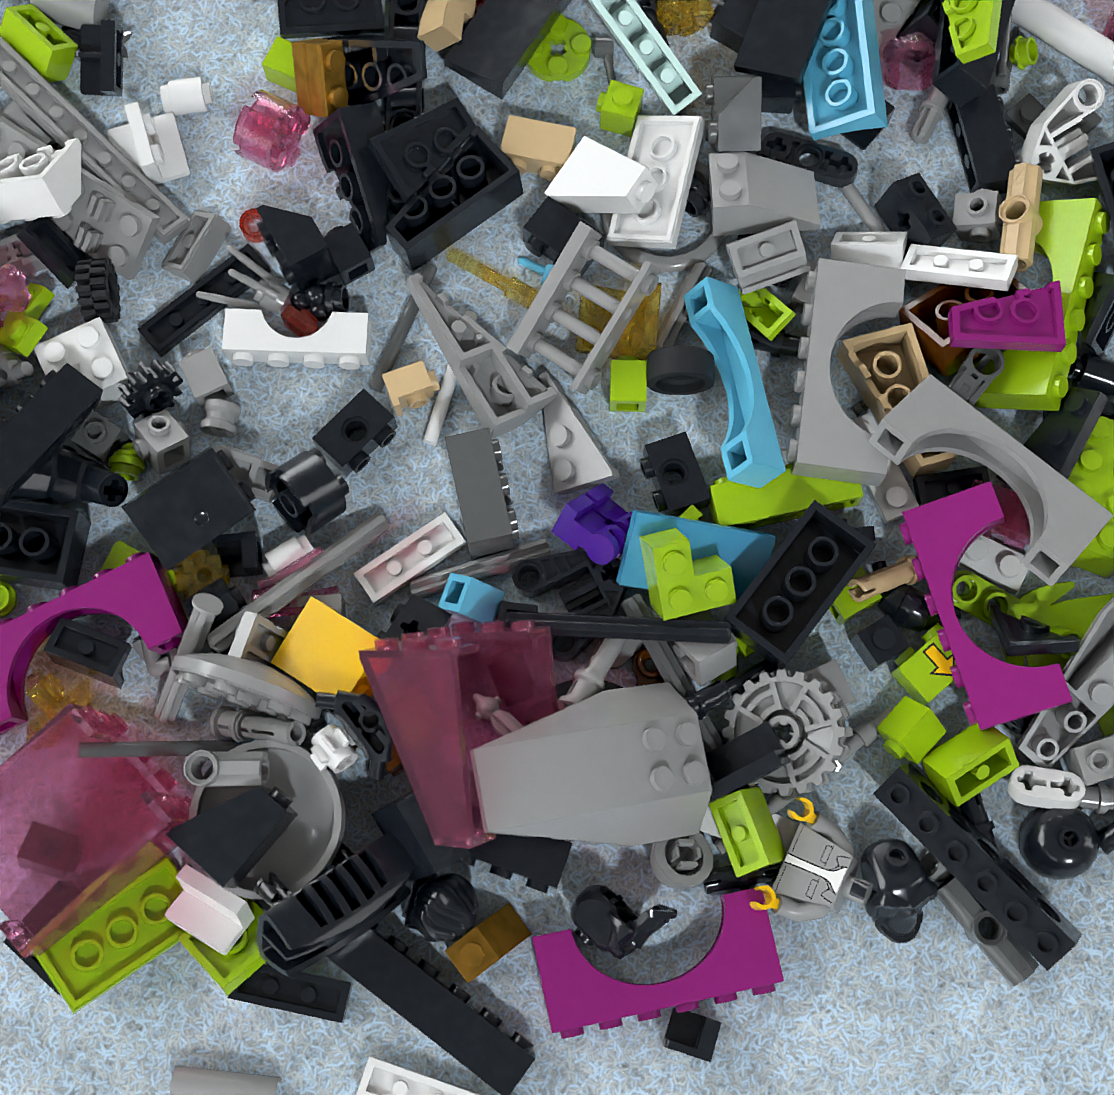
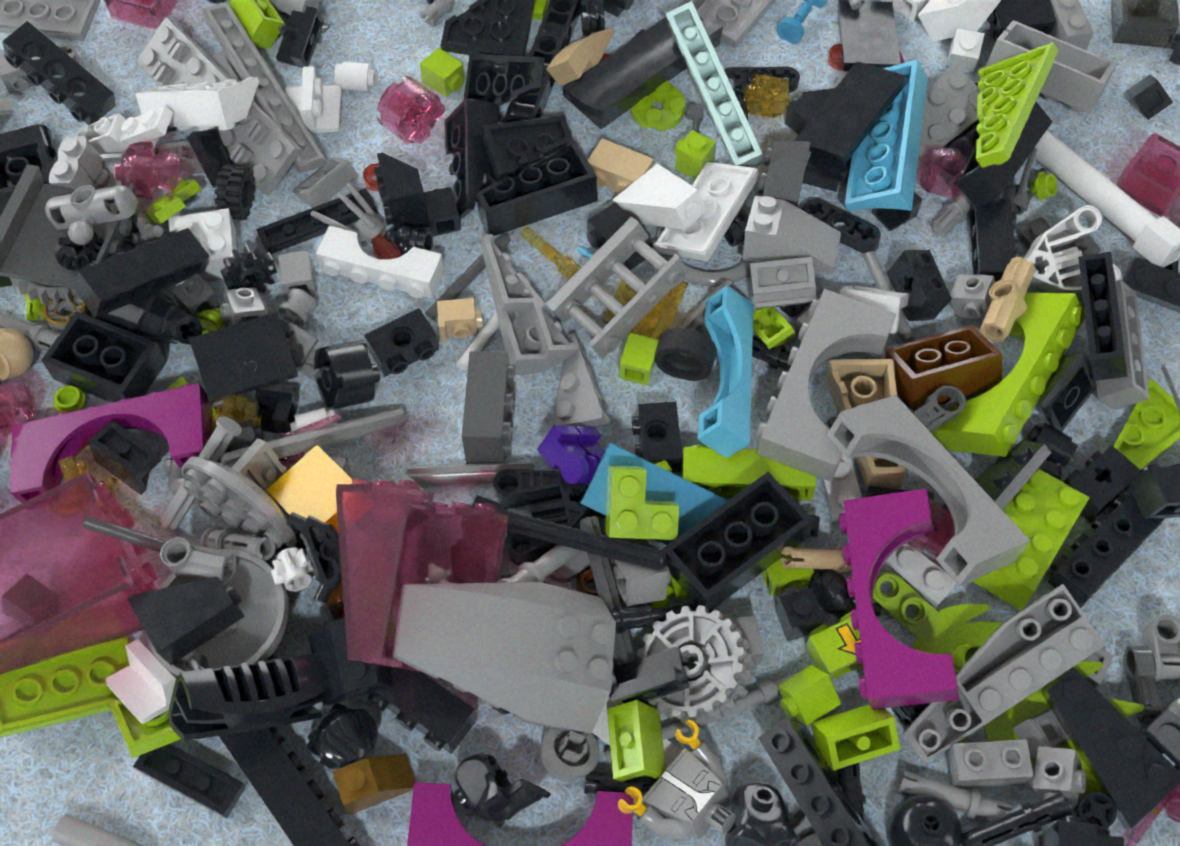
camera: 15 degrees right, 15 degrees down
(320, 76) = (460, 77): pearl gold brick -> none
(410, 558) = (414, 449): white plate -> none
(471, 598) = (453, 485): medium azure brick -> none
(960, 267) = (945, 325): white plate -> none
(1015, 322) = (978, 371): magenta wing -> none
(1029, 636) = (936, 634): black tile -> none
(1046, 787) = (921, 775): white beam -> none

